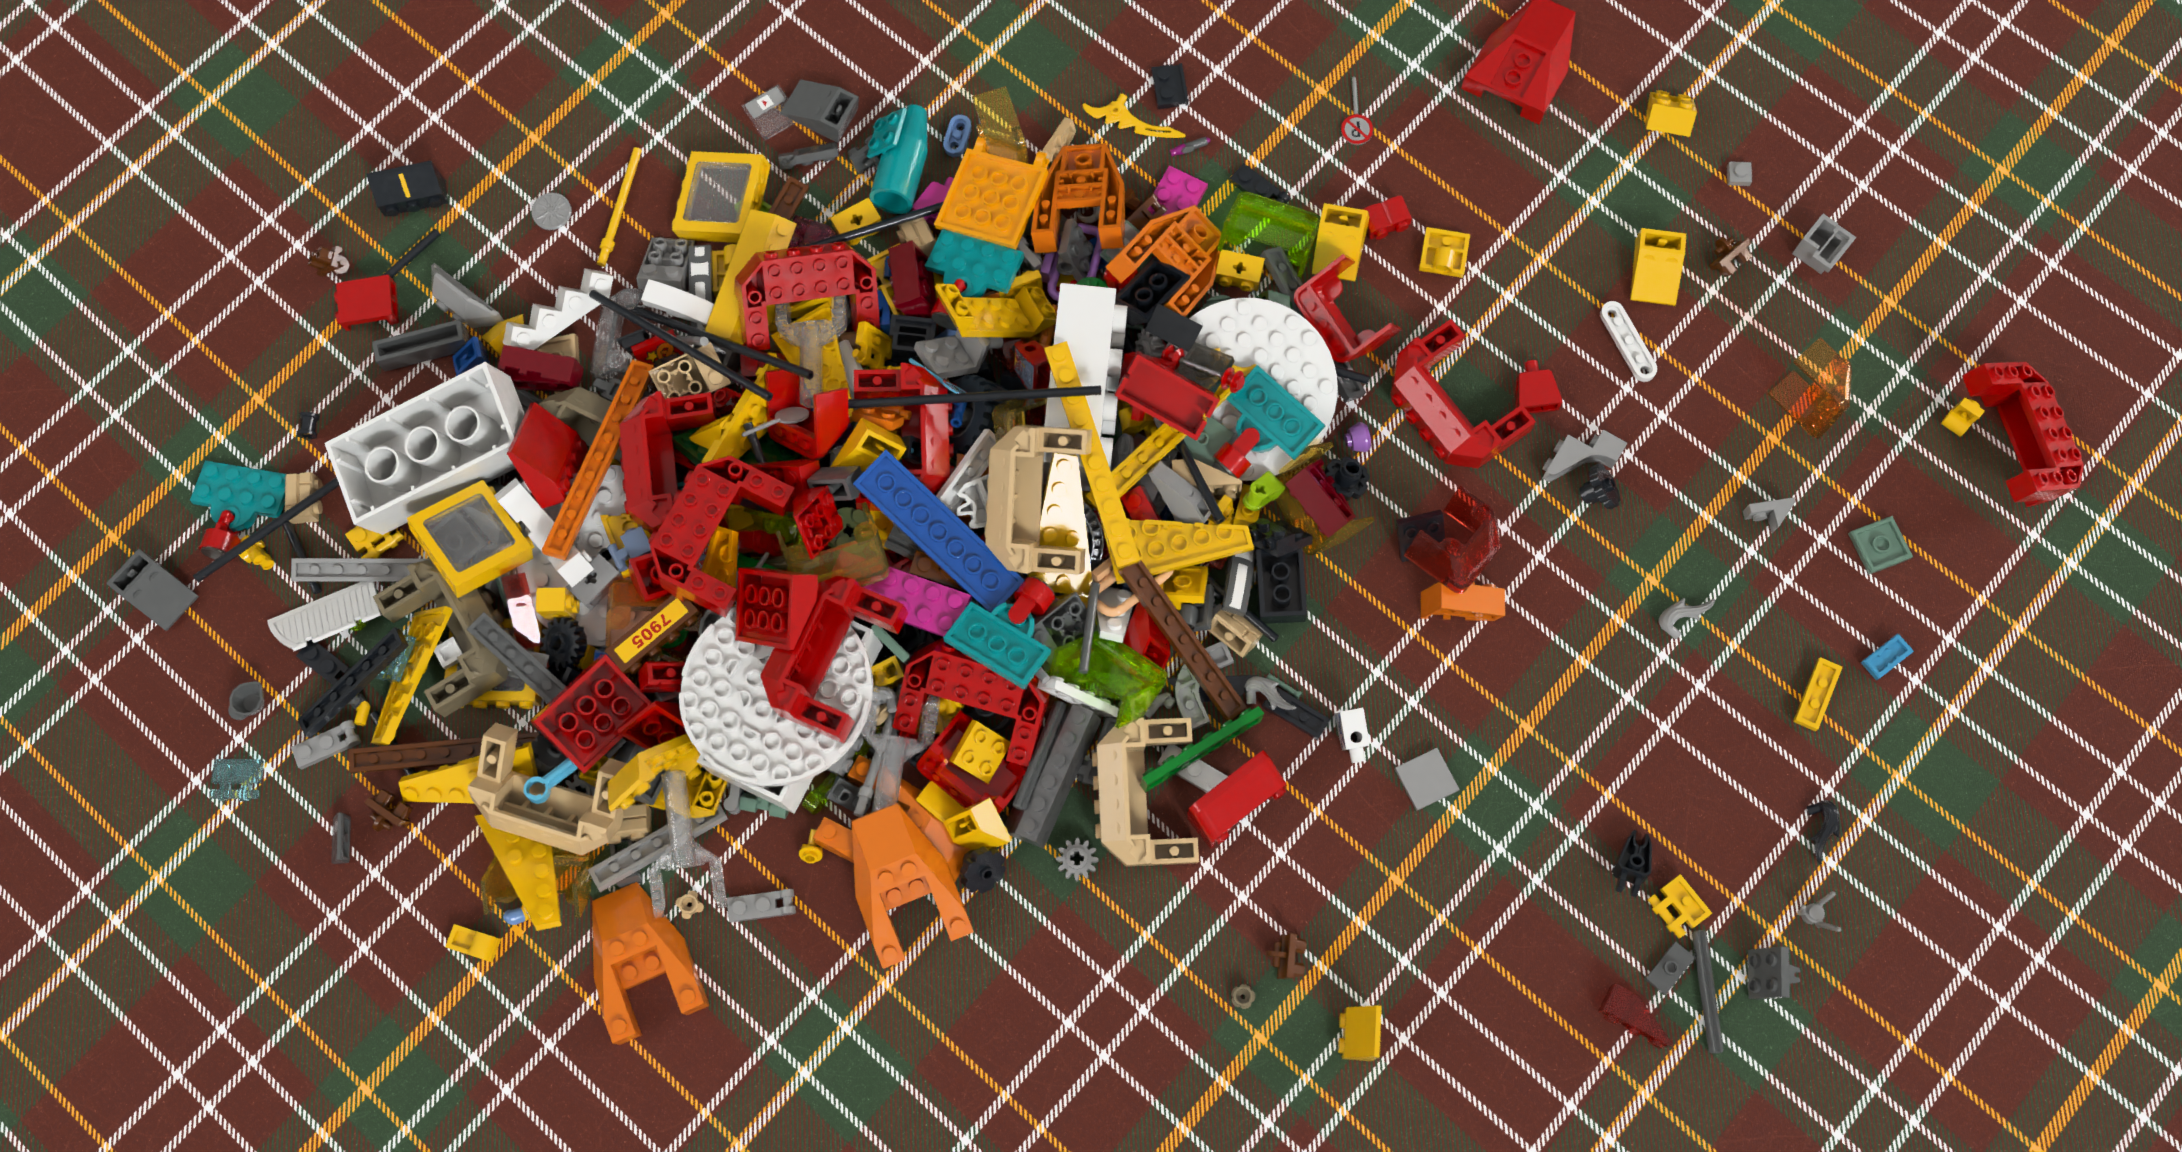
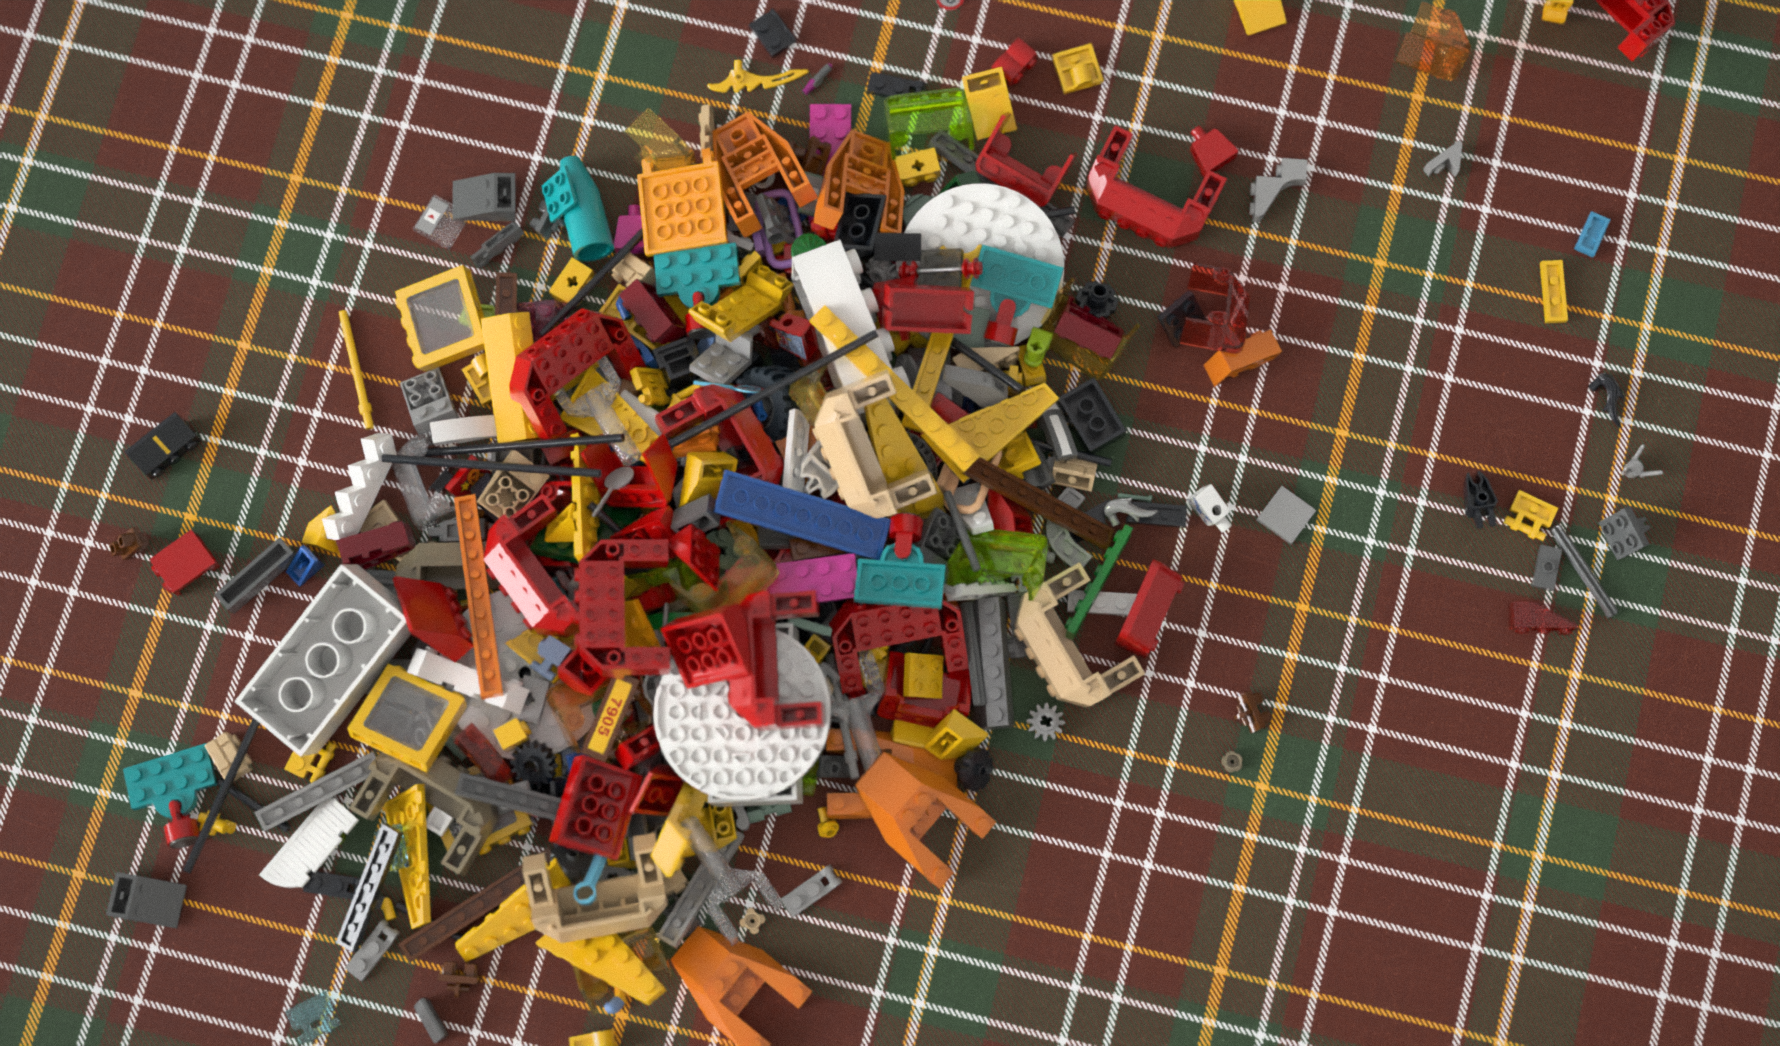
camera: 30 degrees left, 5 degrees up
(246, 700) = (285, 949): dark grey piece -> none
(307, 425) = (195, 693): black bush -> none
(413, 253) = (197, 501): black bar -> none
(461, 301) = (267, 520): light grey wedge -> none
(551, 211) = (298, 402): light grey wheel -> none
(694, 340) = (497, 455): light grey bar -> none
(701, 274) = (464, 396): slope -> none
(957, 137) = (615, 166): medium blue plate -> none
(1278, 537) = (1070, 377): black plate -> none
(1358, 437) = (1089, 262): medium lavender cone -> none
(1360, 1033) = (1340, 741): yellow slope -> none
(1600, 488) = (1304, 208): black plant -> none
(1628, 341) = (1264, 72): white plate -> none
(1680, 610) = (1415, 277): light grey piece -> none
(1880, 545) = (1543, 144): sand green tile -> none

